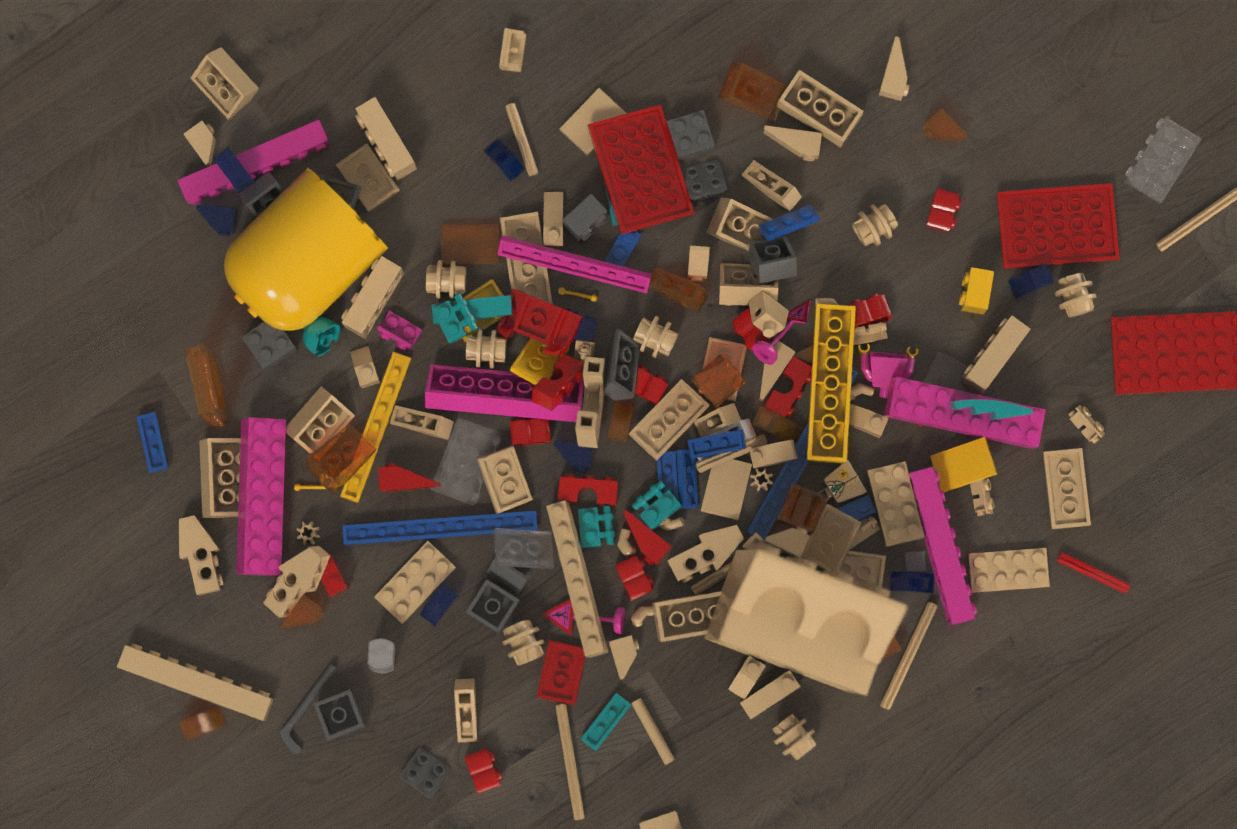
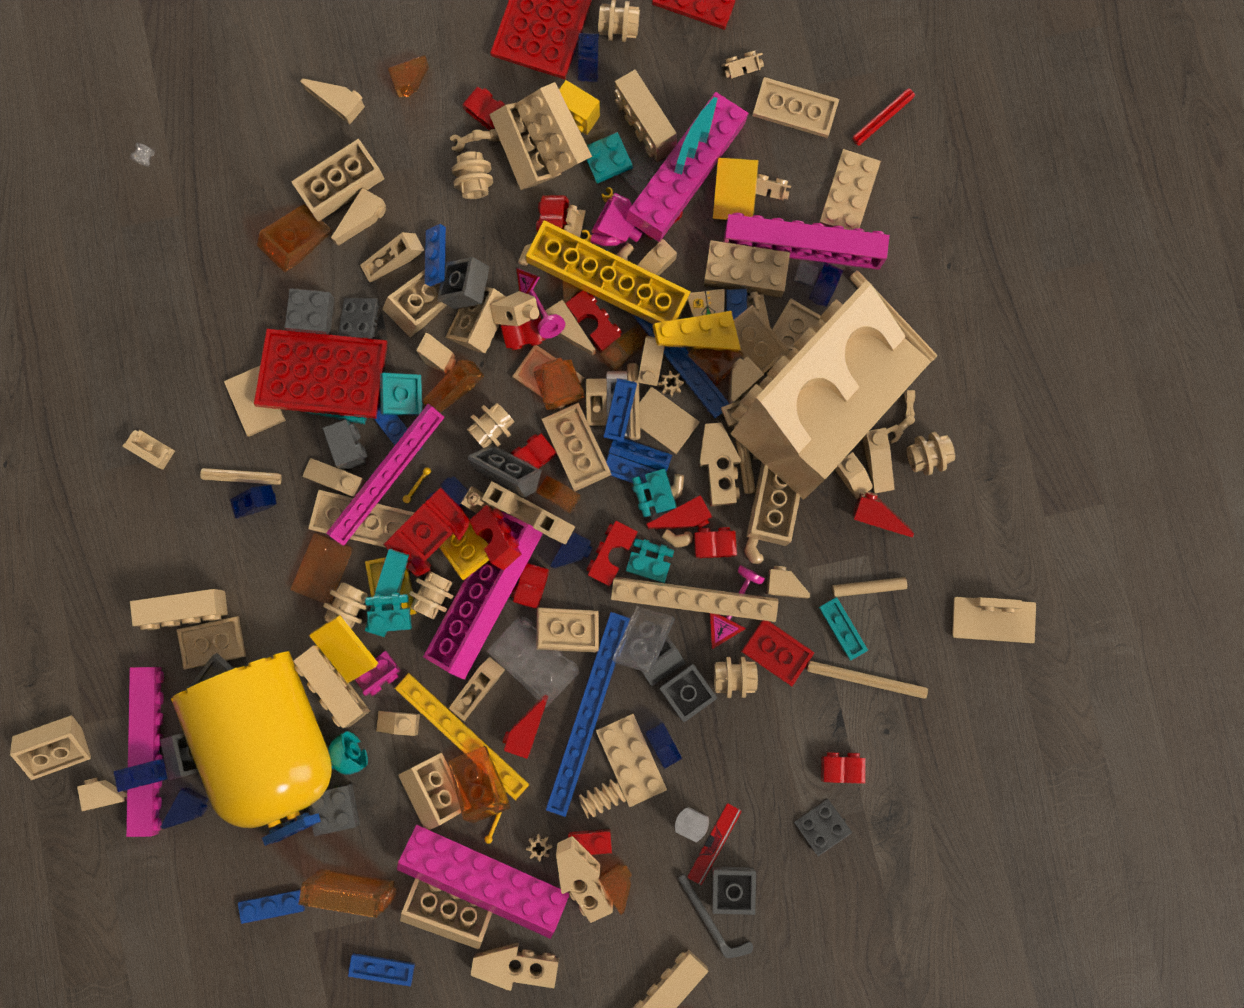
camera: 75 degrees left, 0 degrees up
(167, 326) = (270, 906): none -> blue plate
(240, 315) = (290, 828): none -> blue plate
(371, 570) = (601, 798): none -> tan piece
(372, 684) = (714, 844): none -> red sticker
(408, 294) = (343, 649): none -> yellow tile
(465, 710) = (777, 761): tan slope -> none
(651, 246) = (400, 394): none -> teal plate
(721, 712) = (875, 512): none -> red slope
(806, 701) = (909, 398): none -> tan piece
(816, 490) = (705, 331): none -> yellow wing
(914, 213) = (476, 135): none -> tan piece
(924, 260) = (519, 147): none -> tan slope
(944, 279) = (553, 129): none -> tan brick
(945, 337) = (608, 158): none -> teal plate

